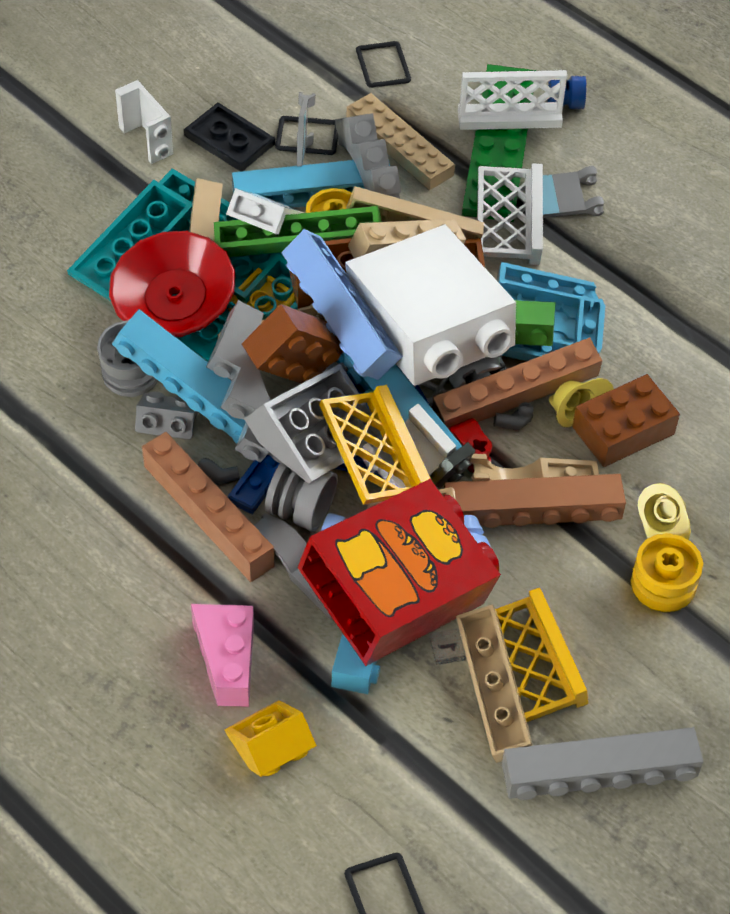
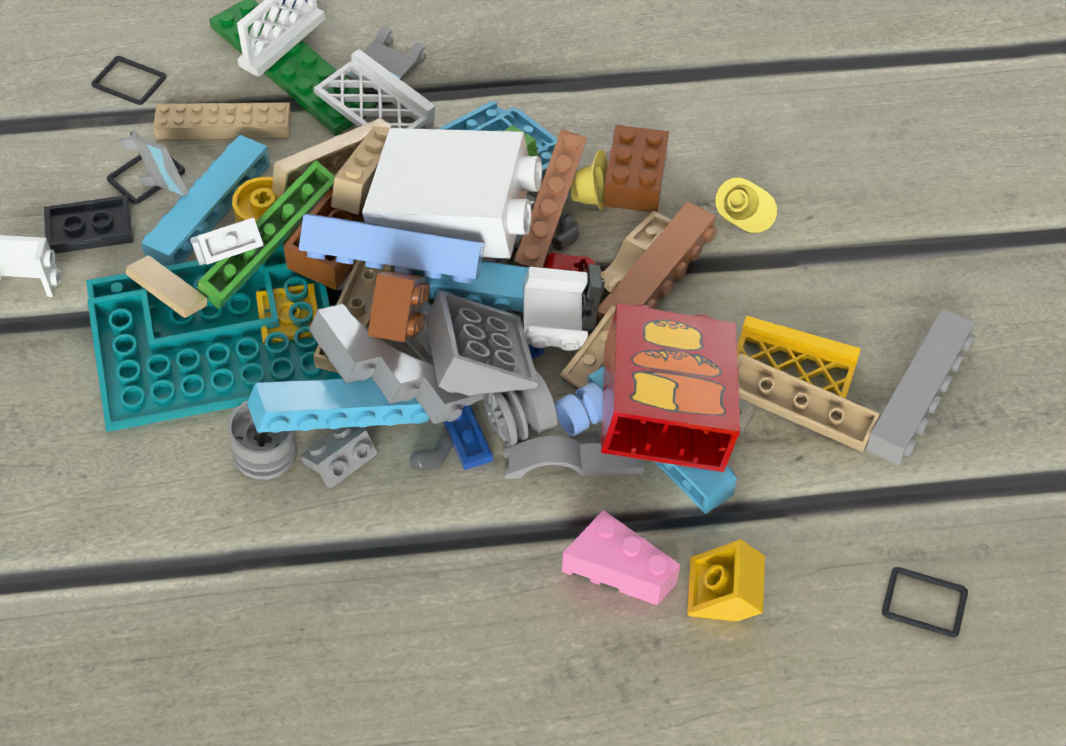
camera: 50 degrees left, 0 degrees up
(168, 266) = (217, 332): red dish -> none
(208, 506) = (463, 482): nougat brick -> none
(369, 154) = (239, 140): light grey arch -> none
(395, 441) = (543, 308): yellow fence -> none
(666, 572) = (793, 236): yellow wheel -> none

